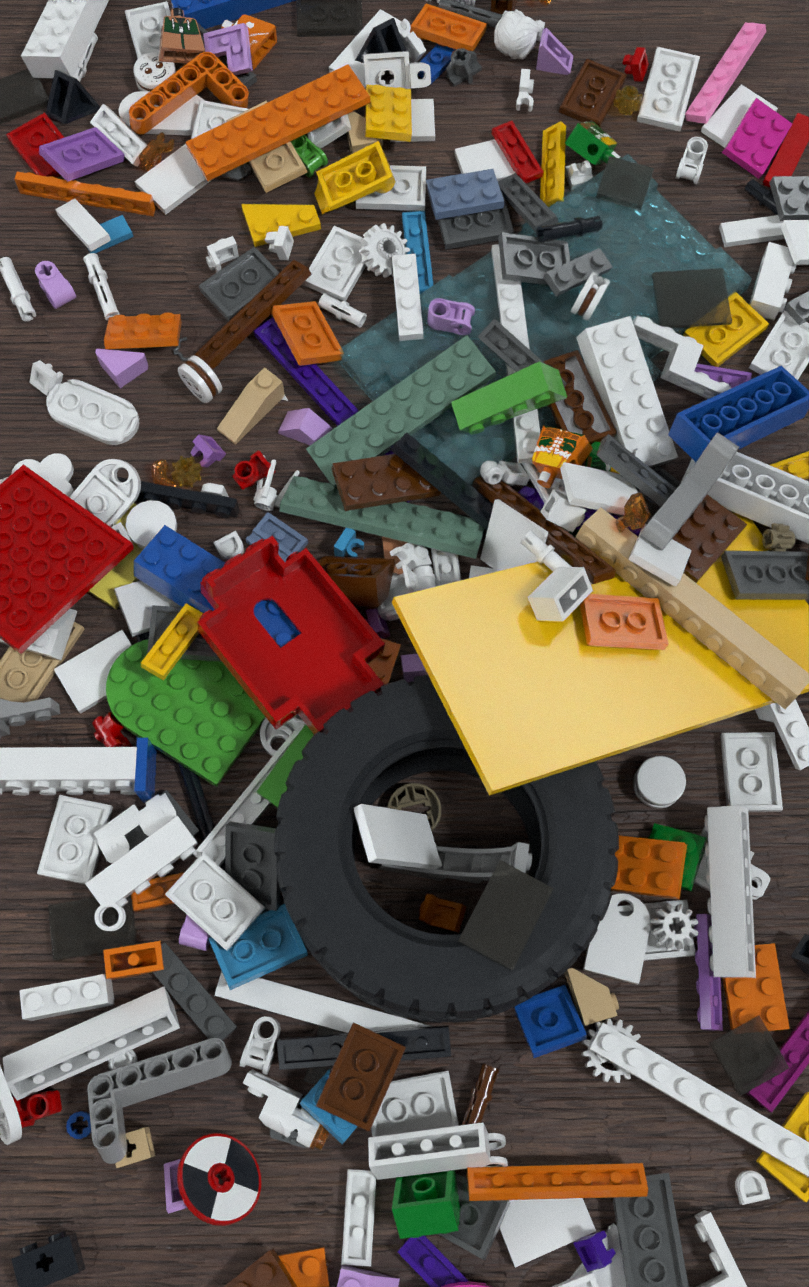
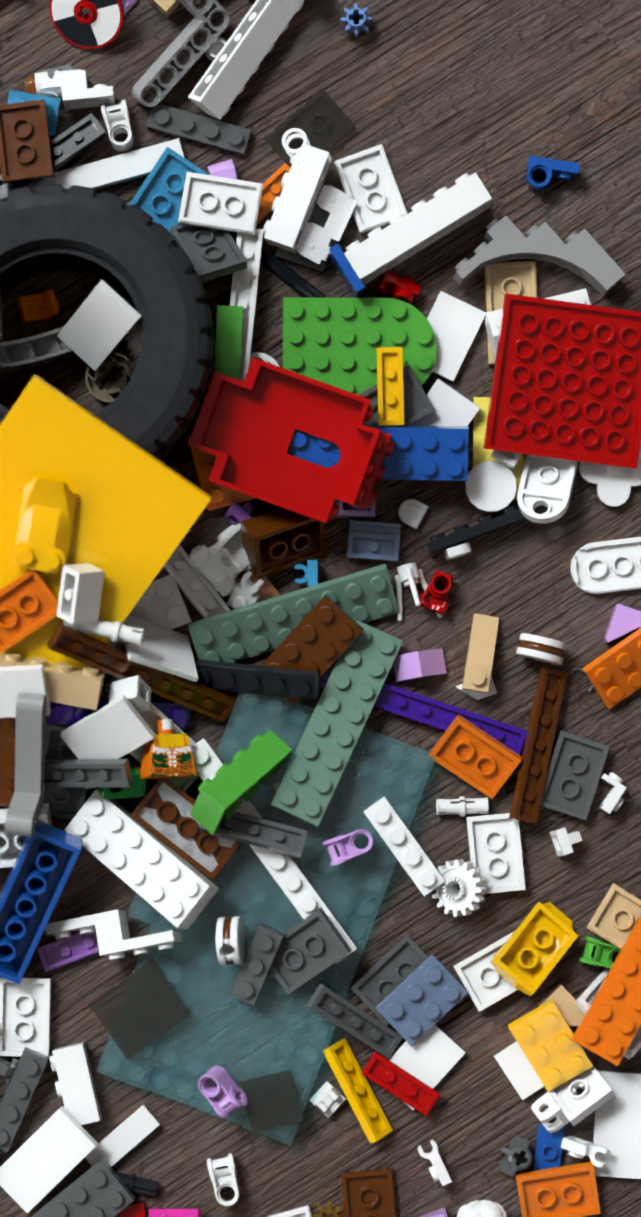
camera: 155 degrees right, 15 degrees up
(66, 997) = (290, 67): white brick -> none
(133, 960) = (256, 123): orange slope -> none
(159, 473) = (517, 538): clear orange arm -> none
(185, 464) = (497, 563): clear yellow gear -> none
(209, 448) = (491, 590): medium lavender tile -> none
(268, 218) = (587, 865): yellow wing -> none
(382, 39) = (603, 1123): black slope -> none
(417, 240) = (433, 918): dark azure tile -> none
(509, 472) = (211, 728): white plate -> none
(561, 664) = (45, 526): none -> yellow slope
(577, 228) = (286, 1015): black pin -> none
(592, 143) = (329, 1134): green torso -> none
(635, 513) = (62, 722): clear orange plate -> none
(660, 203) = (222, 1092): none -> lavender piece
(725, 340) = (77, 1018): yellow plate -> none

